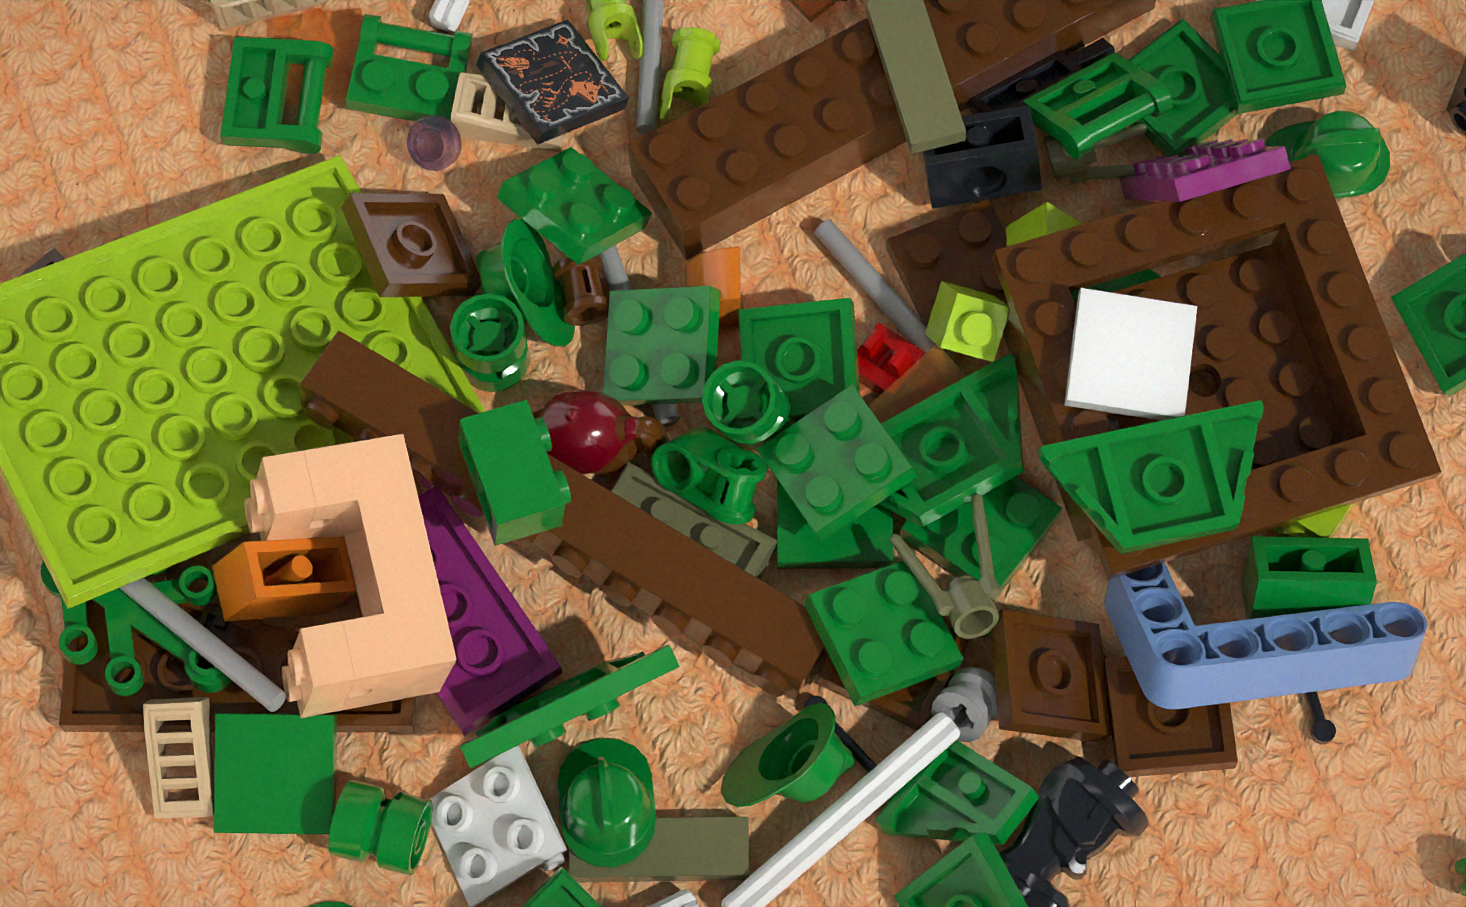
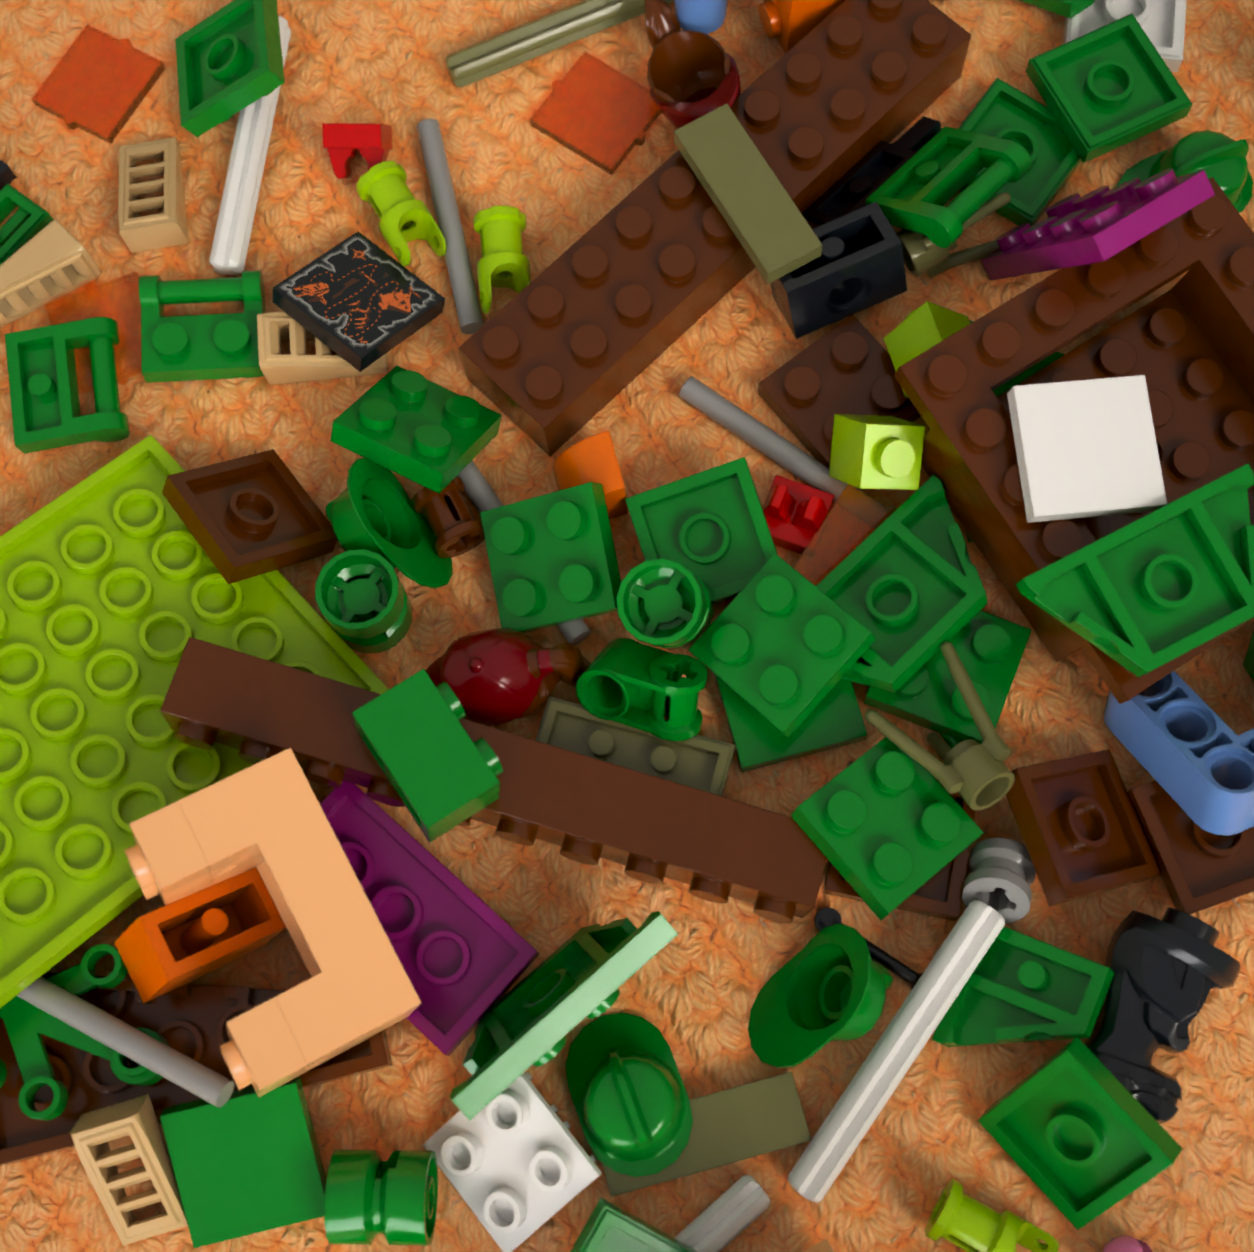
camera: 10 degrees left, 5 degrees up
(434, 142) = (249, 396): plate -> none

